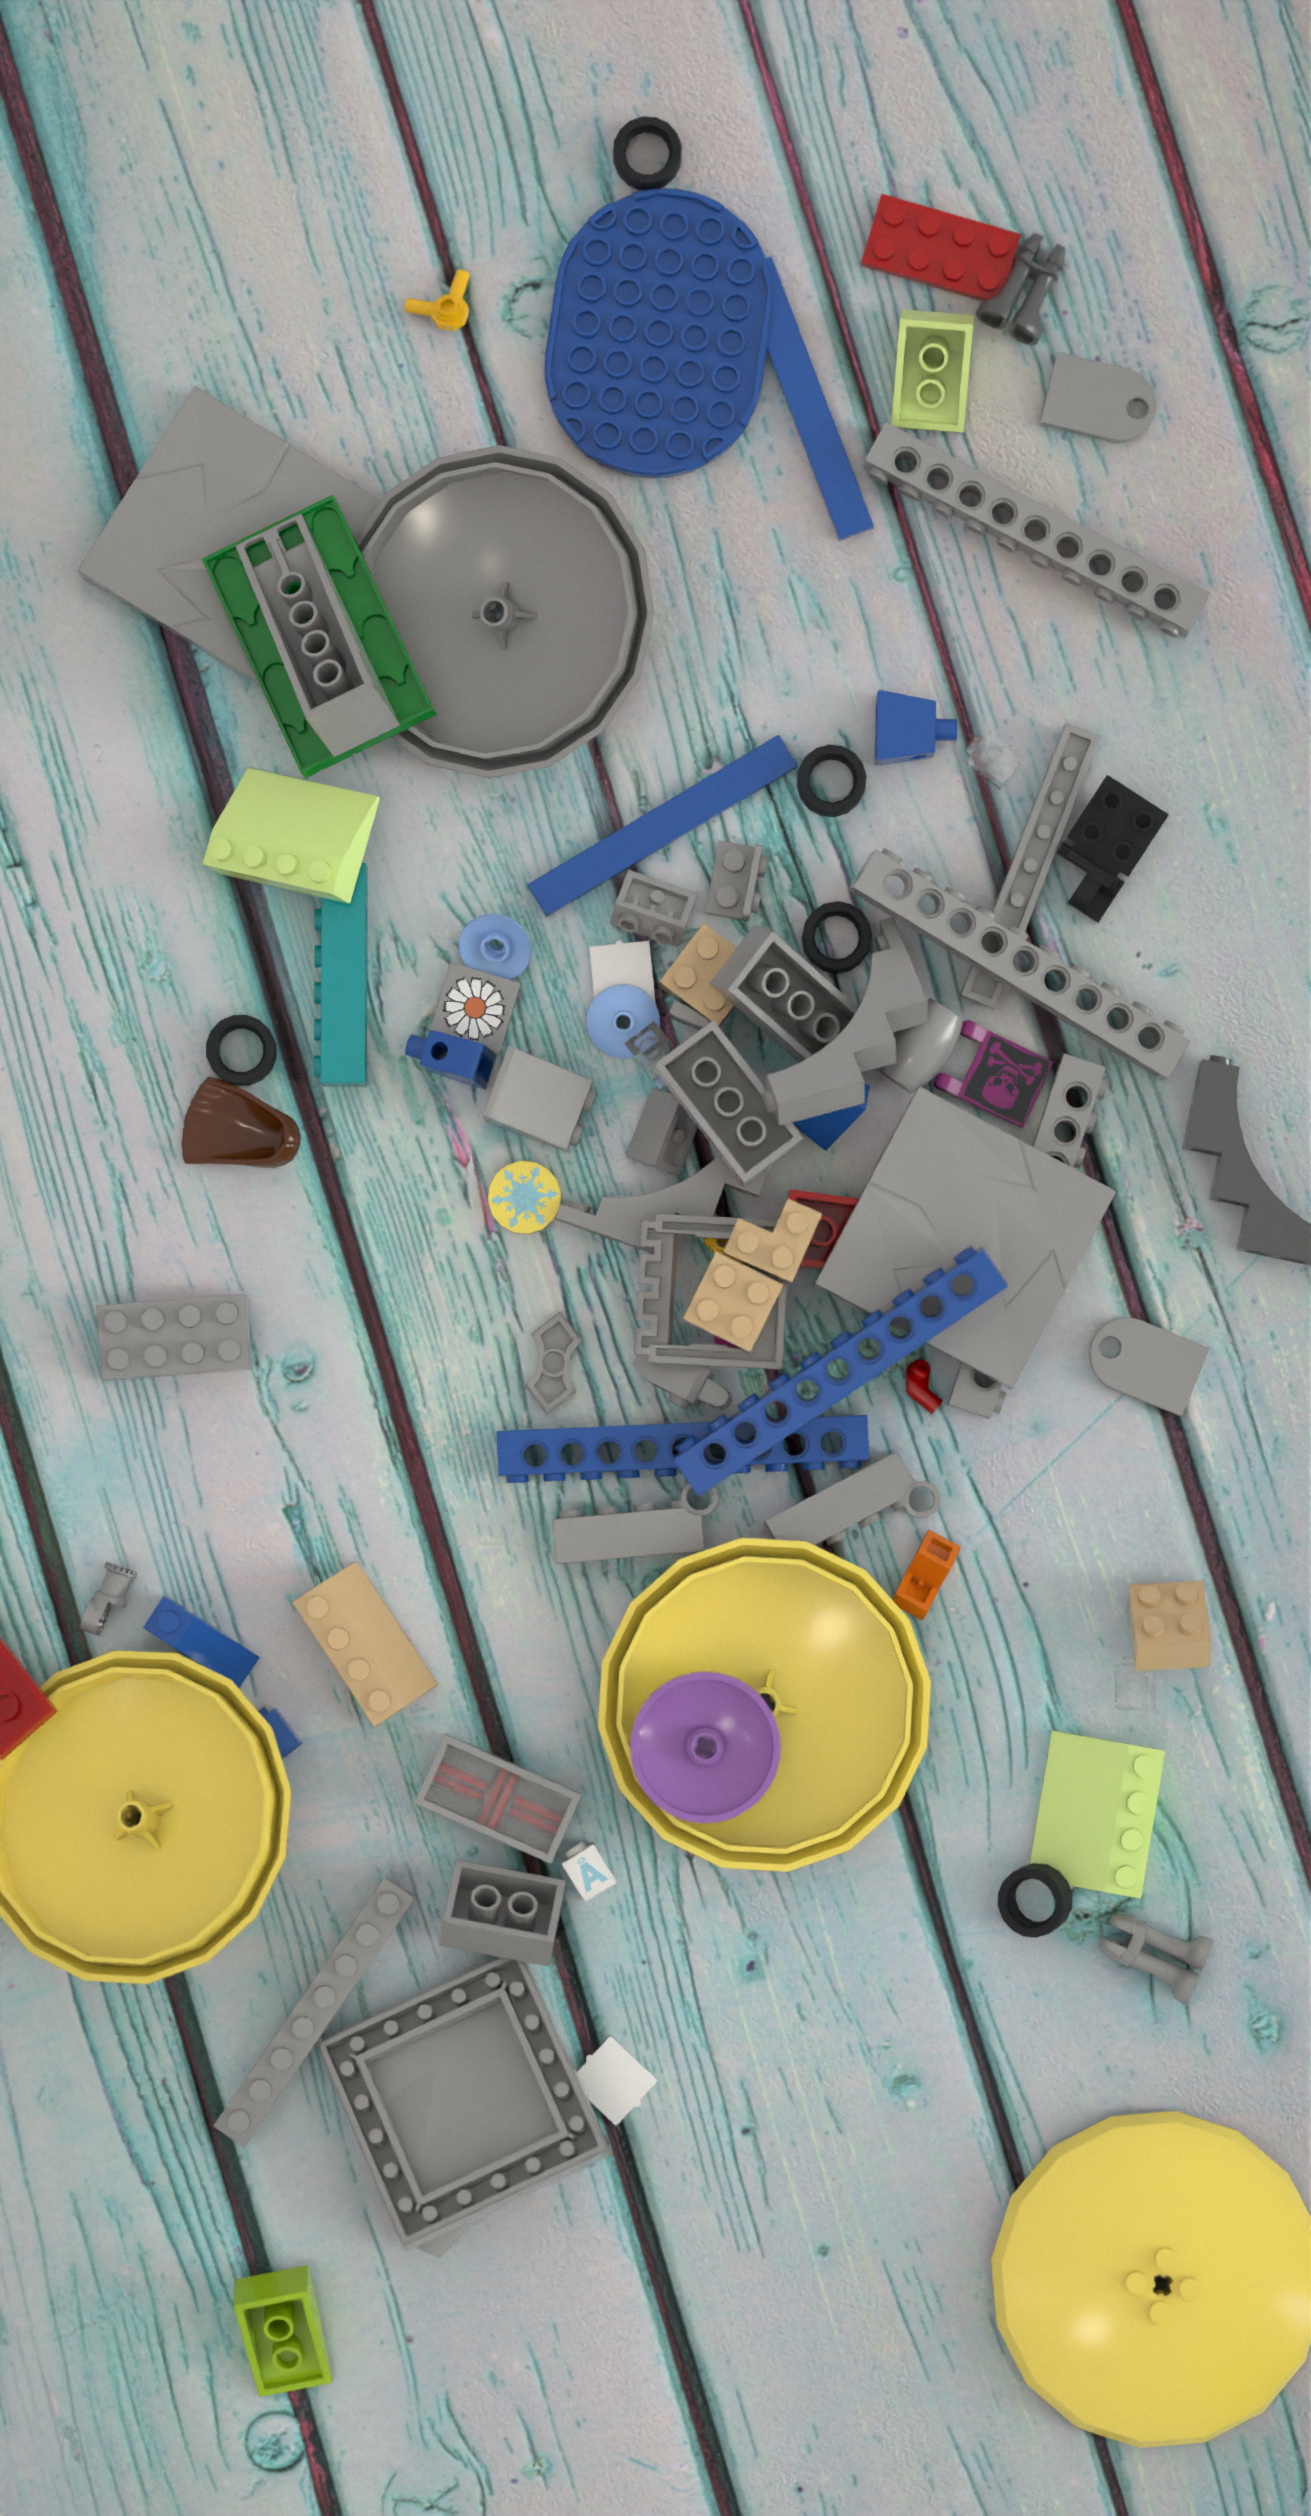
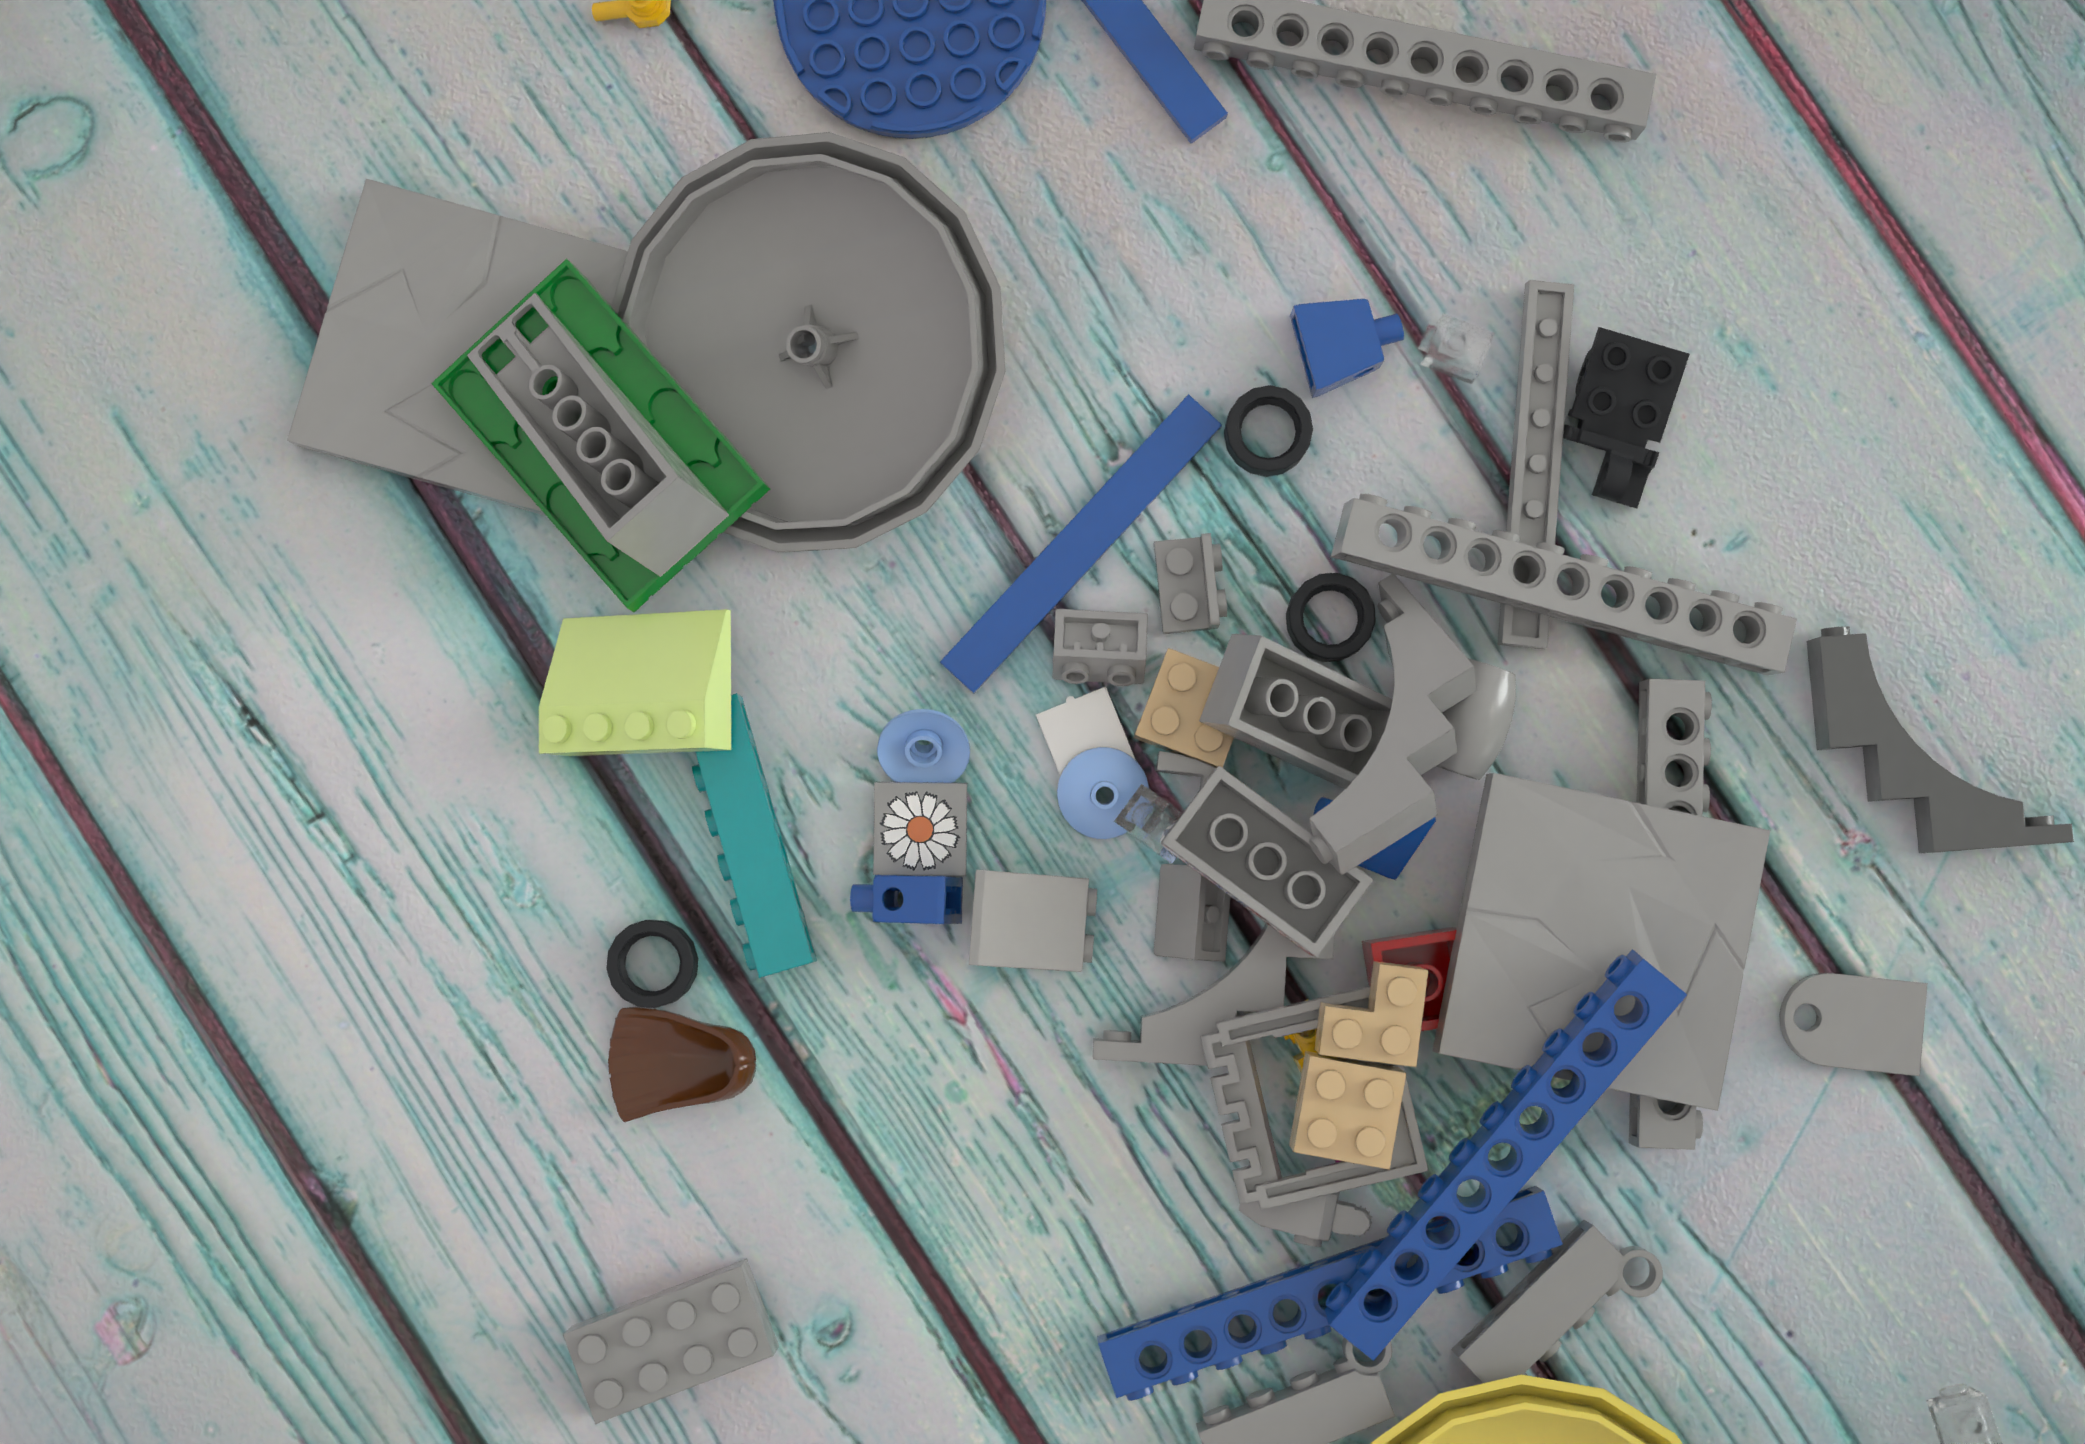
camera: 10 degrees left, 0 degrees up
(524, 1197) = (1046, 1041): light yellow tile -> none
(551, 1380) = (1137, 1209): light grey tile -> none
(918, 1385) = (1590, 1136): red arm -> none
(925, 1574) = (1666, 1360): orange slope -> none
(1001, 1077) = (1576, 728): flag -> none
(1169, 1625) = (1990, 1343): tan brick -> none

